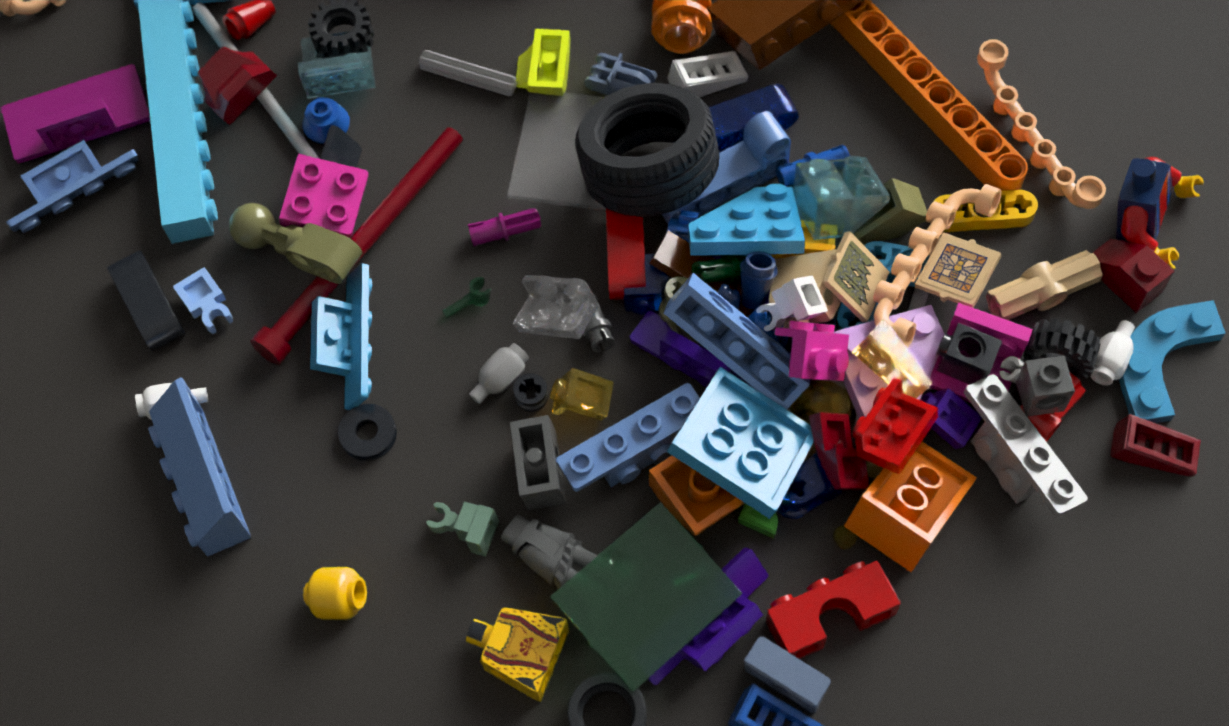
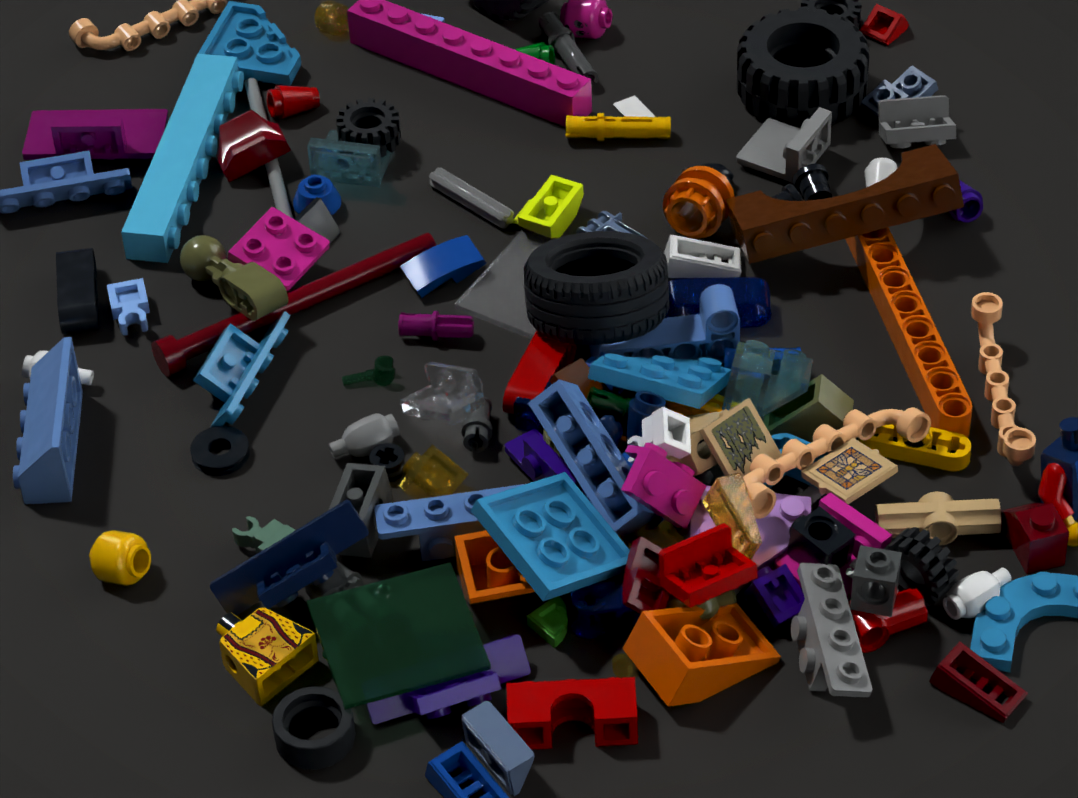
camera: 20 degrees right, 20 degrees down
(479, 157) = (438, 264): none -> blue slope
(511, 552) = (291, 562): none -> dark blue bracket

